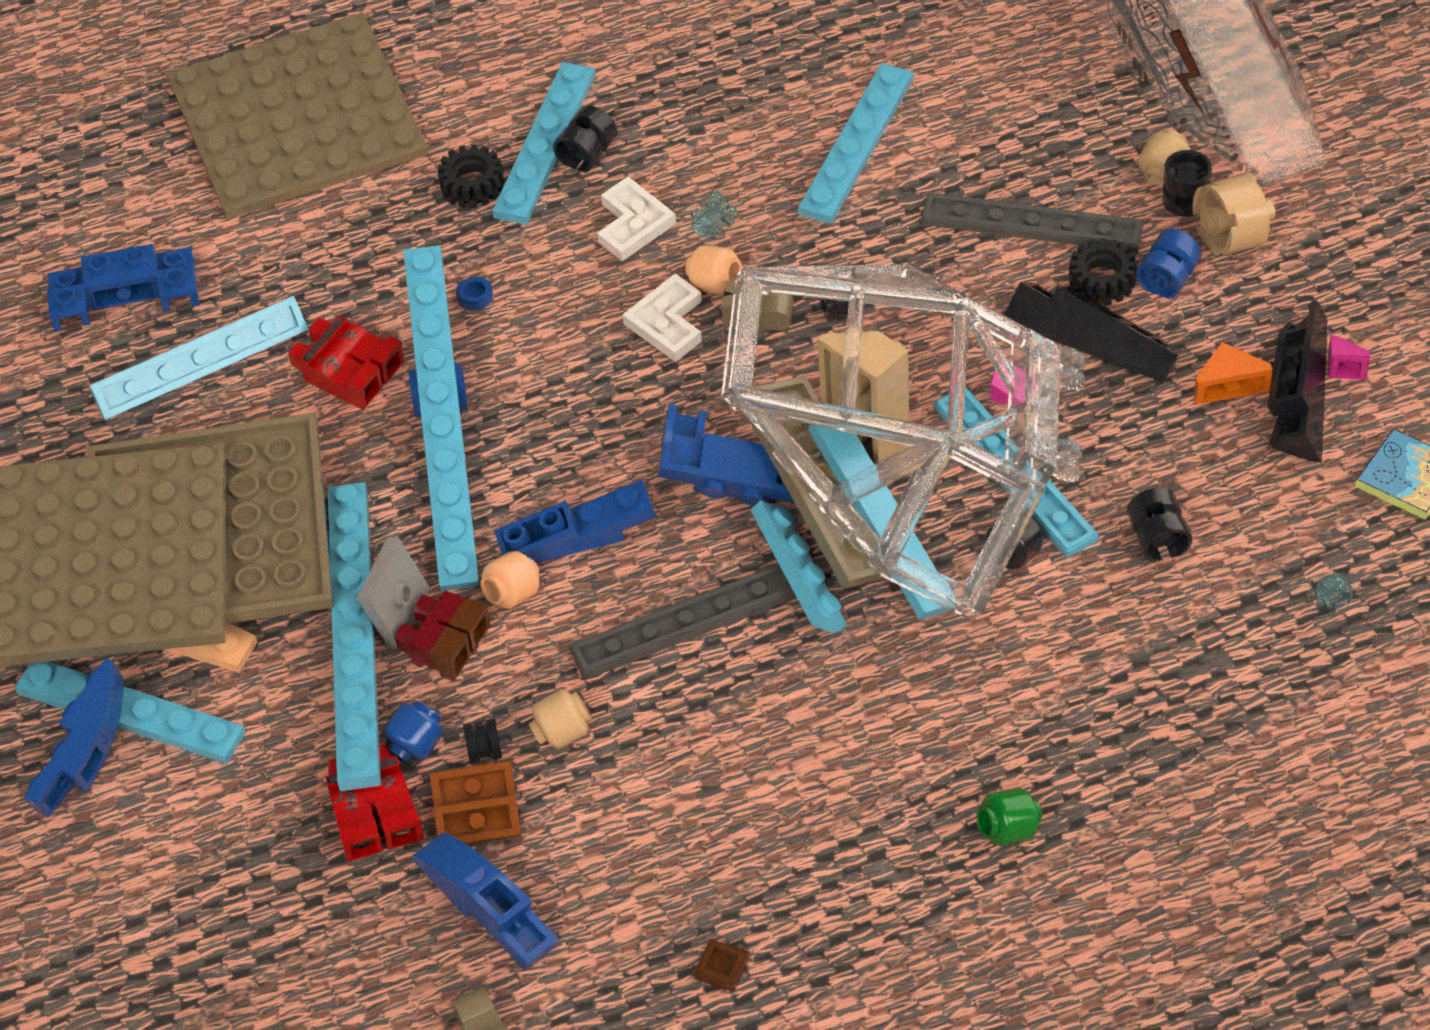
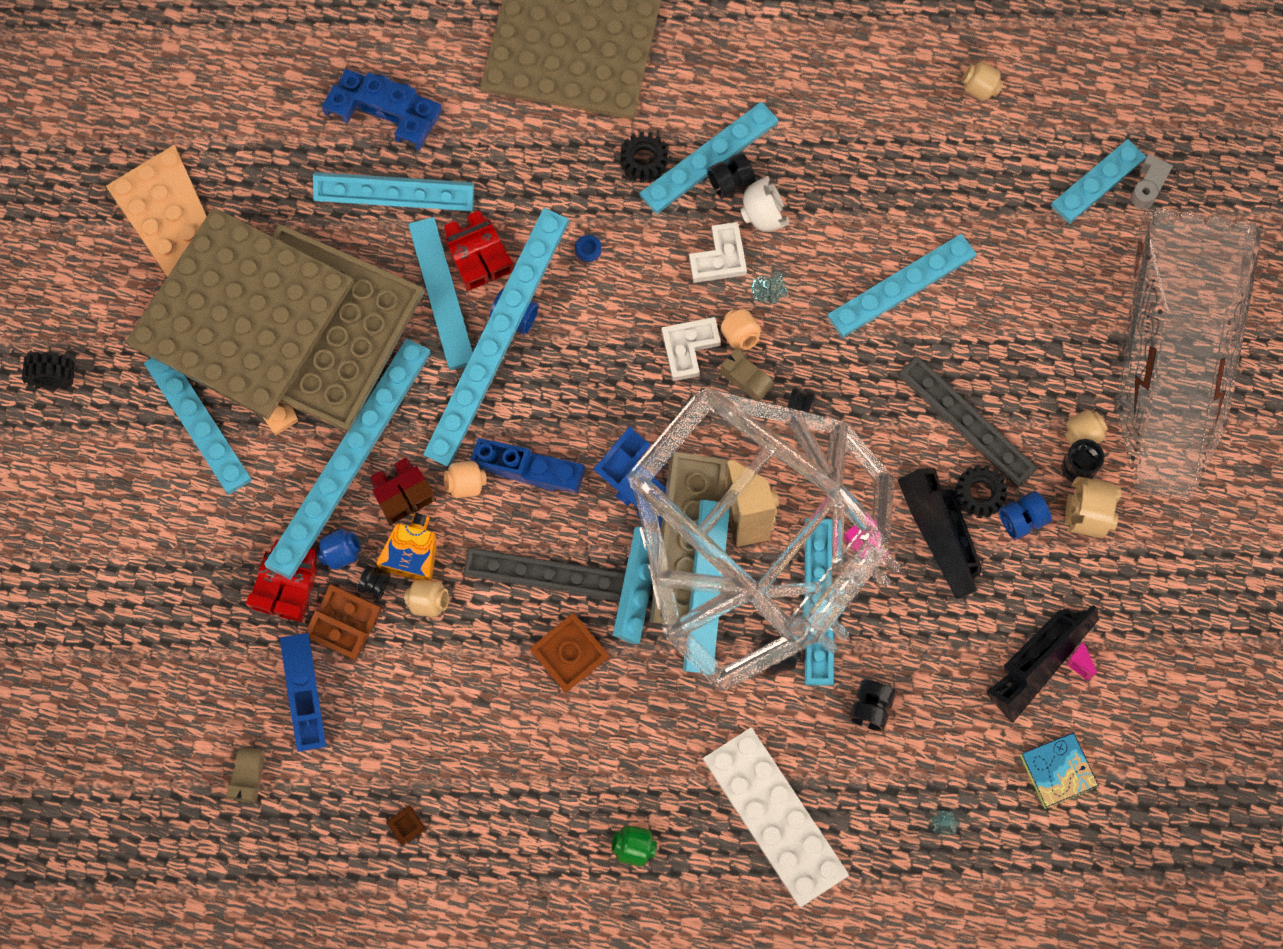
camera: 30 degrees right, 20 degrees up
(90, 728) = (161, 425): blue slope -> none
(337, 425) = (441, 293): none -> medium azure tile
(392, 590) = (386, 446): light grey plate -> none
(503, 683) = (410, 550): none -> torso
(647, 145) = (763, 206): none -> white cylinder
(773, 678) = (569, 652): none -> dark orange plate
(1144, 698) = (775, 817): none -> white plate
(1231, 375) = (1000, 624): orange slope -> none

